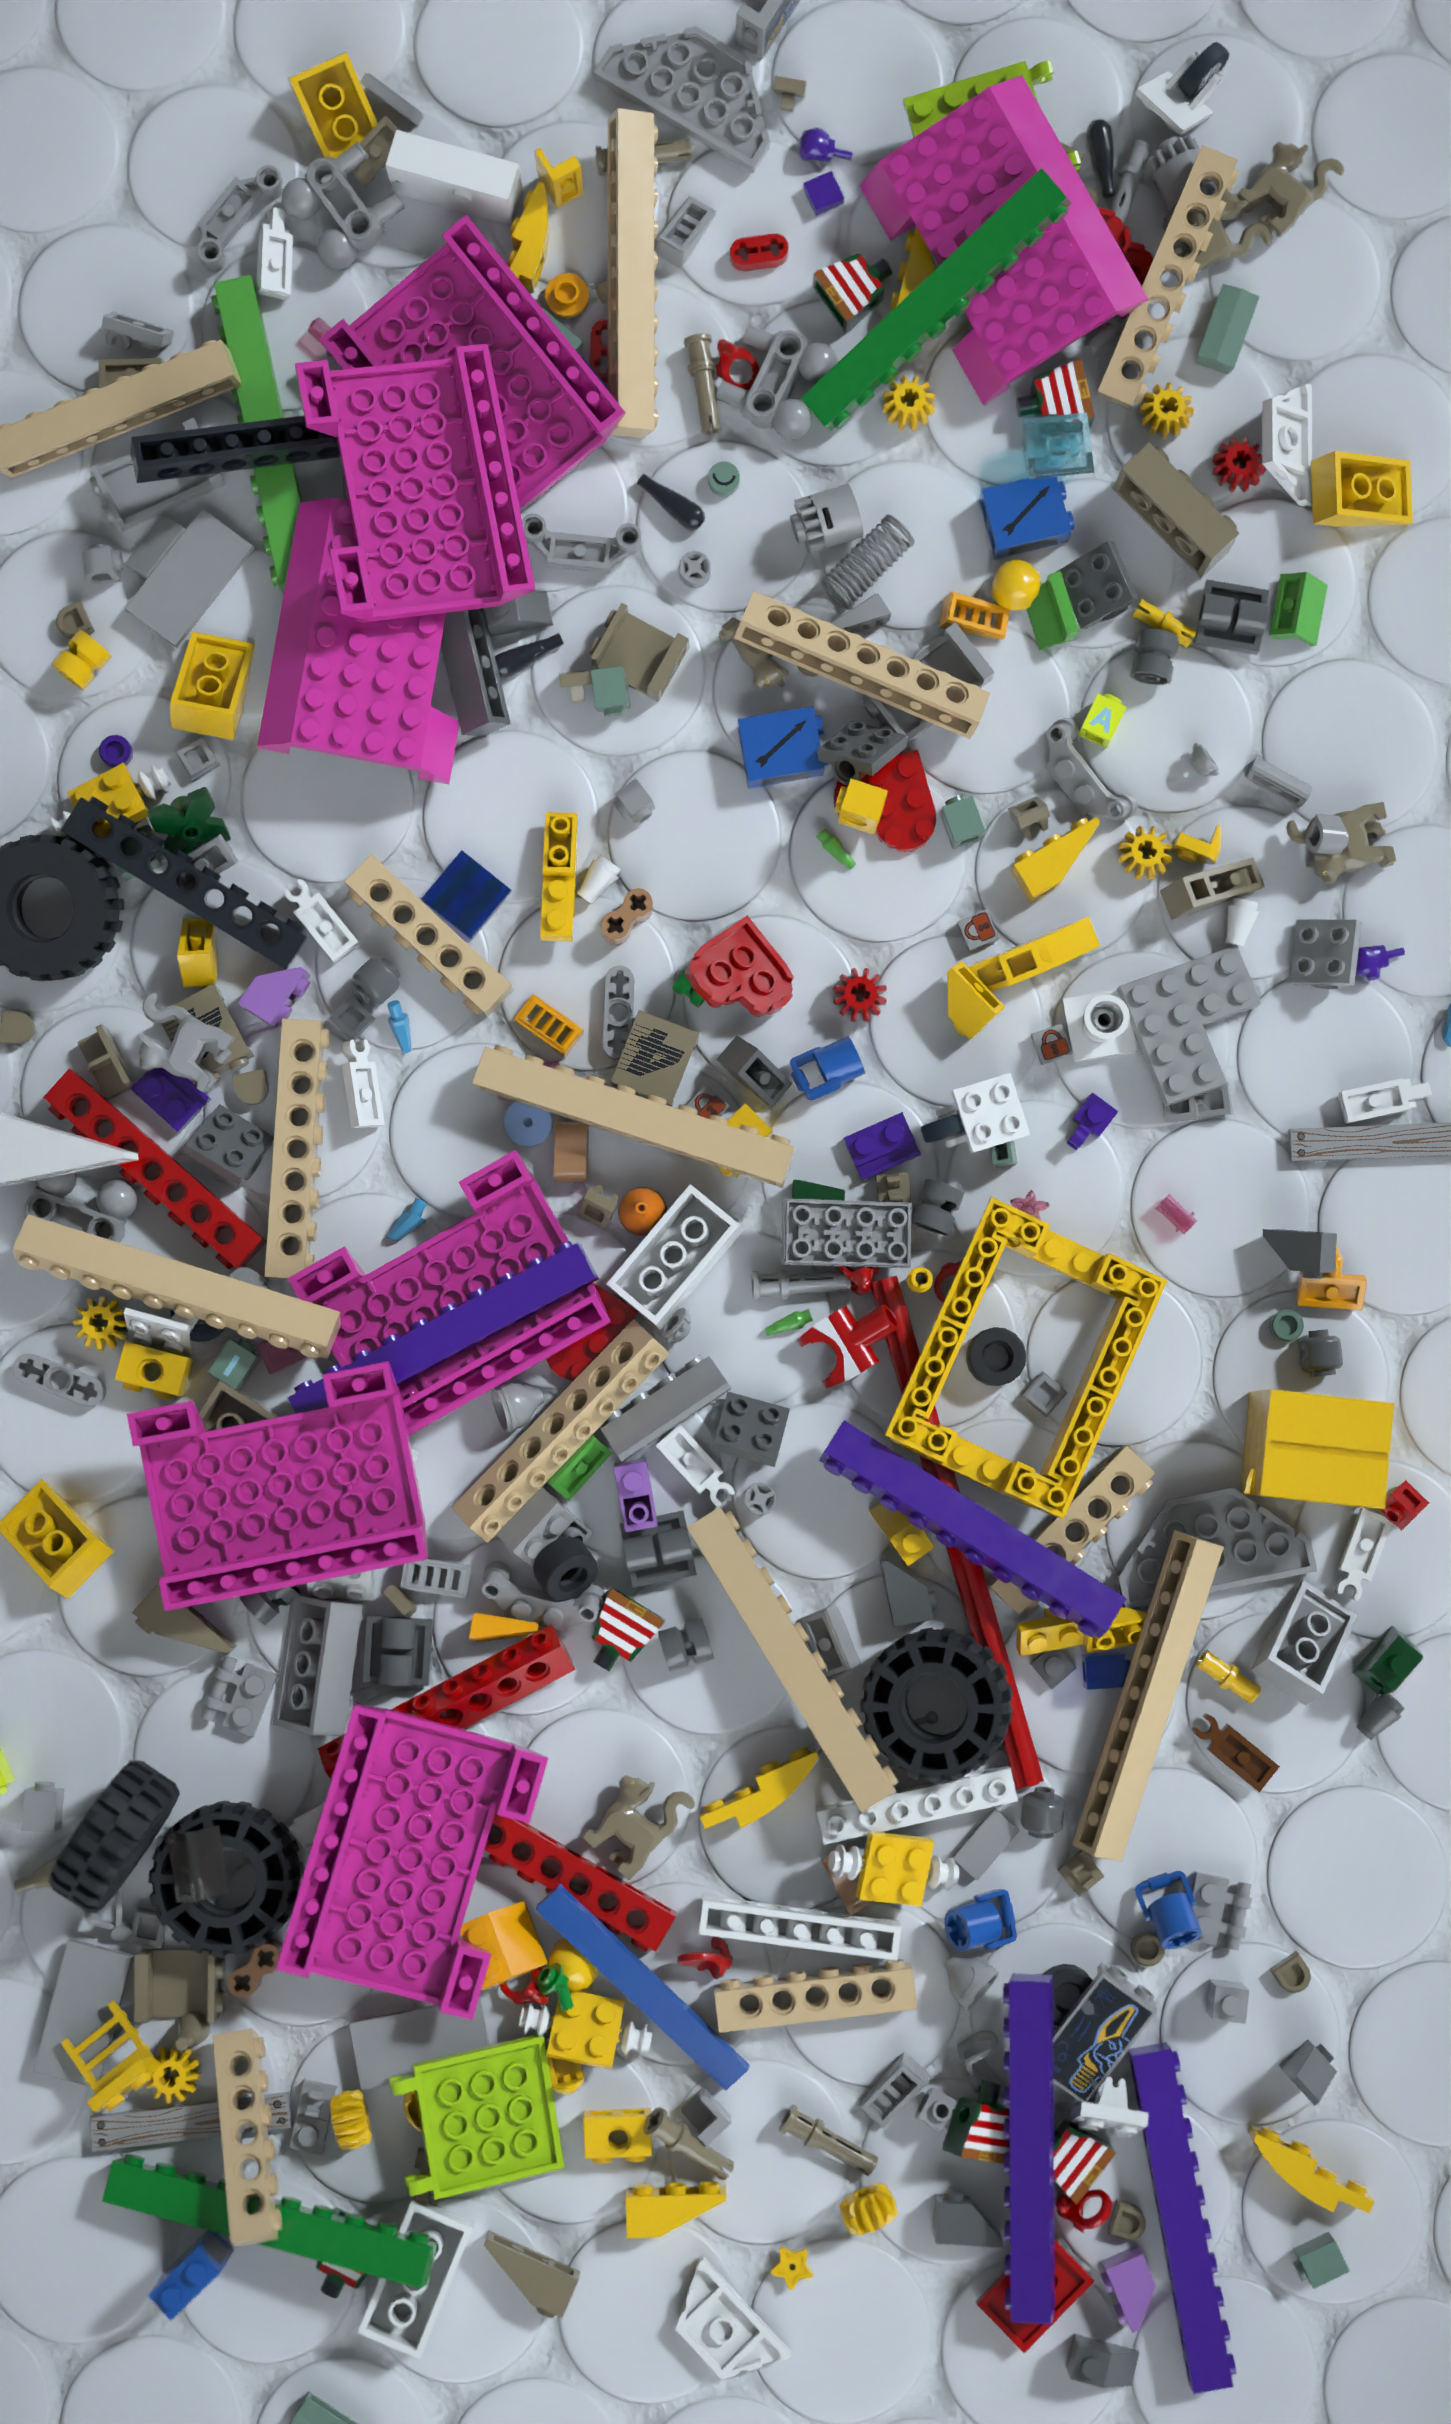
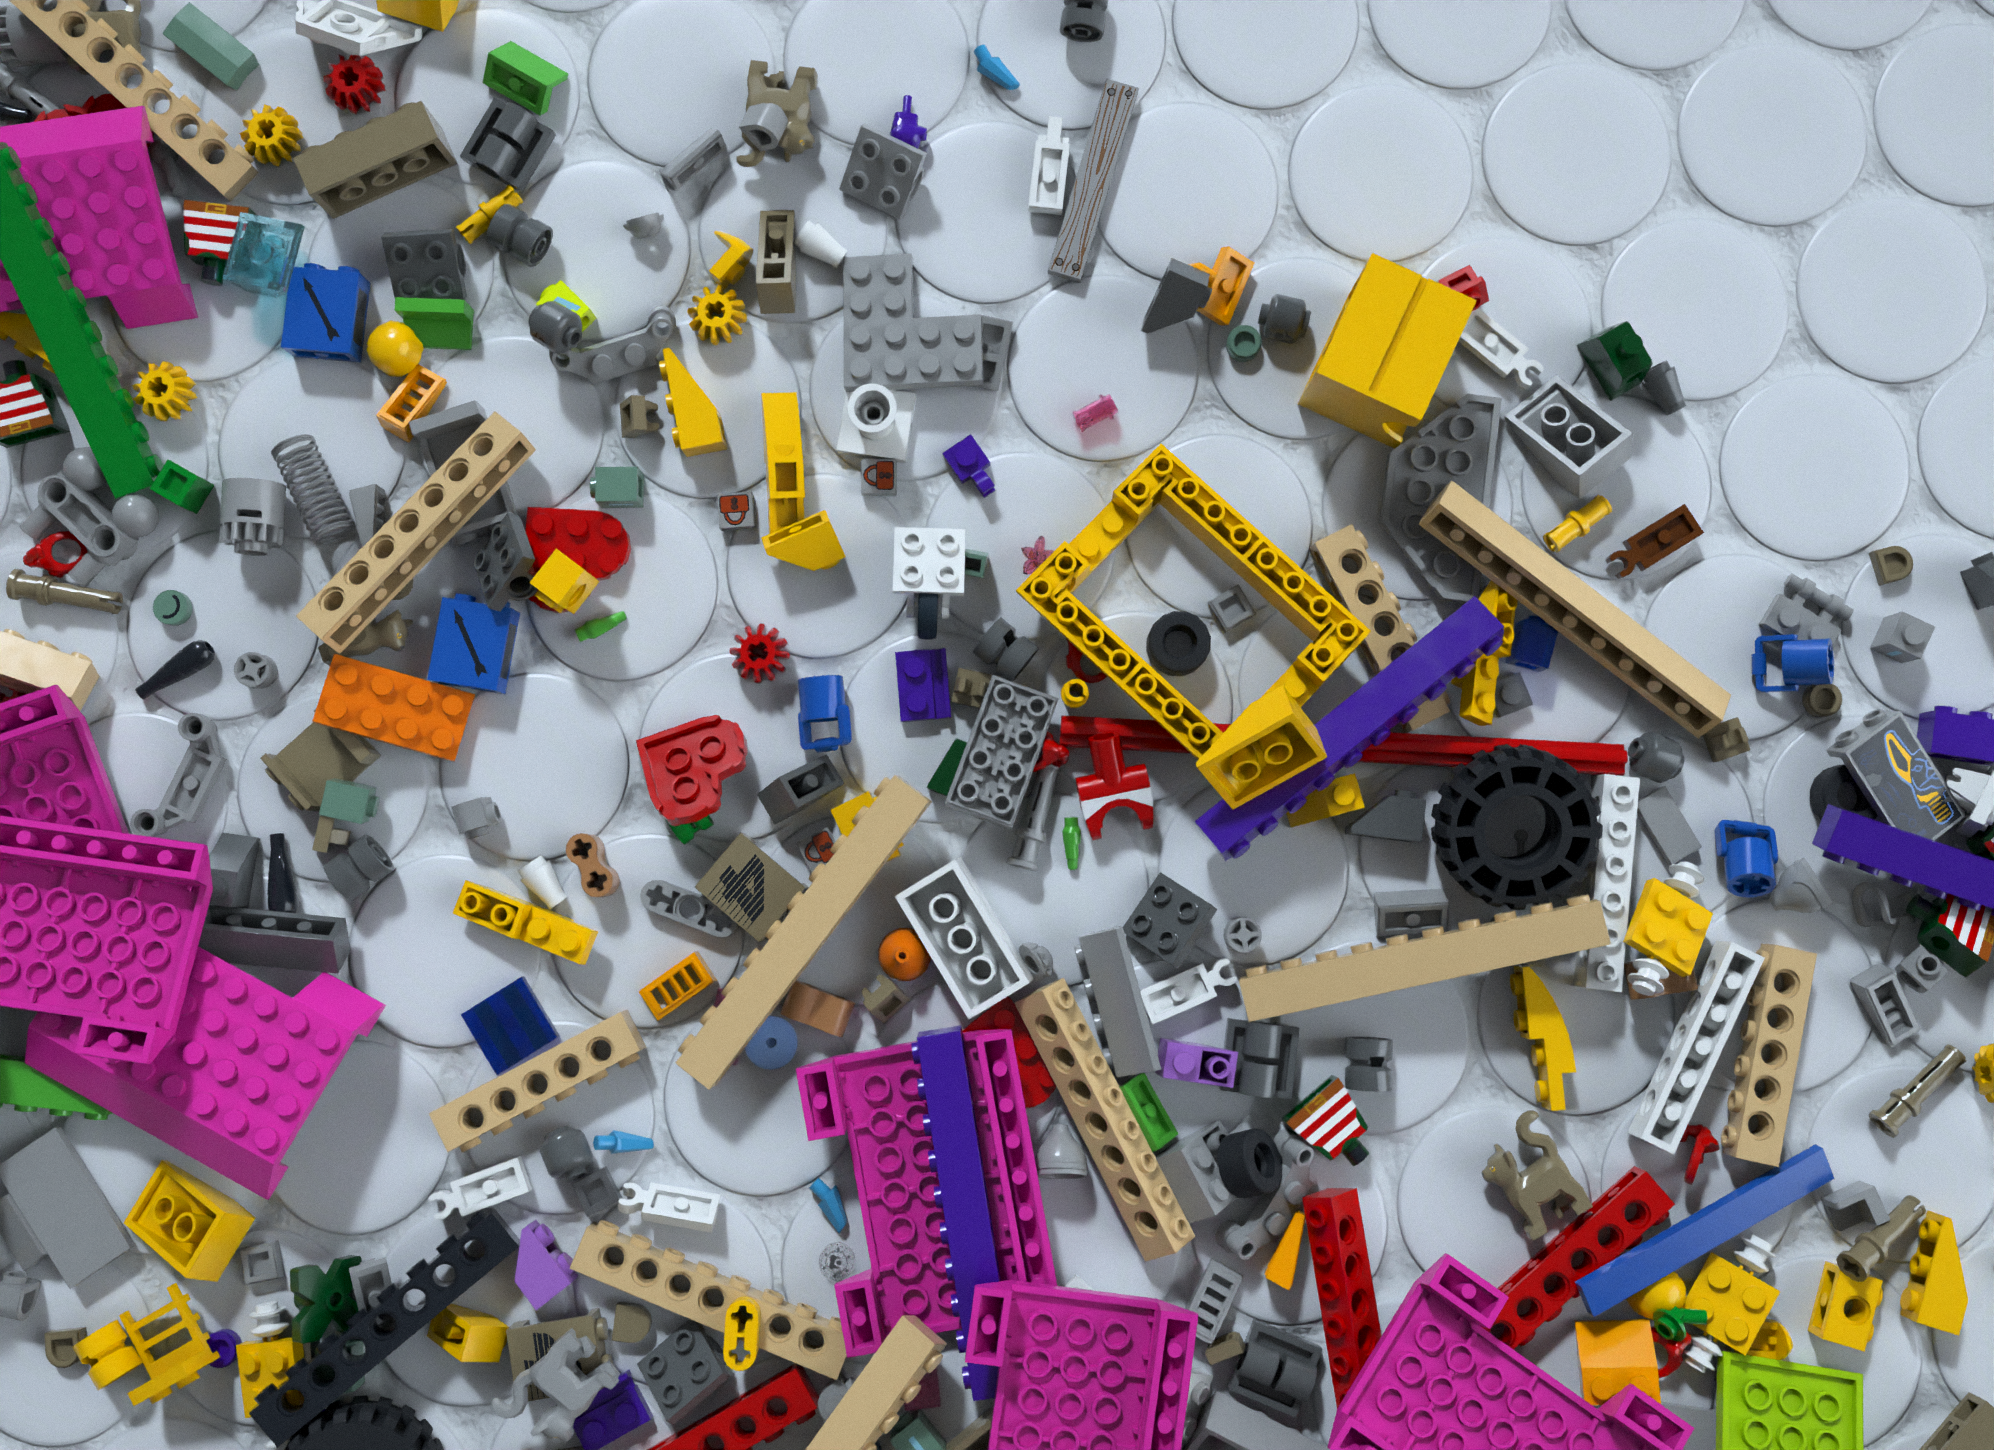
camera: 65 degrees left, 0 degrees up
(94, 723) = (180, 1364): none -> yellow plate
(276, 1174) = (733, 1332): none -> yellow beam
(361, 1243) = (836, 1261): none -> clear tile
(553, 716) = (352, 872): none -> dark grey wheel
(703, 700) = (393, 708): none -> orange plate
(830, 449) = (182, 487): none -> green panel
(925, 1453) = (1262, 749): none -> yellow slope
(1081, 719) = (555, 327): none -> dark grey head

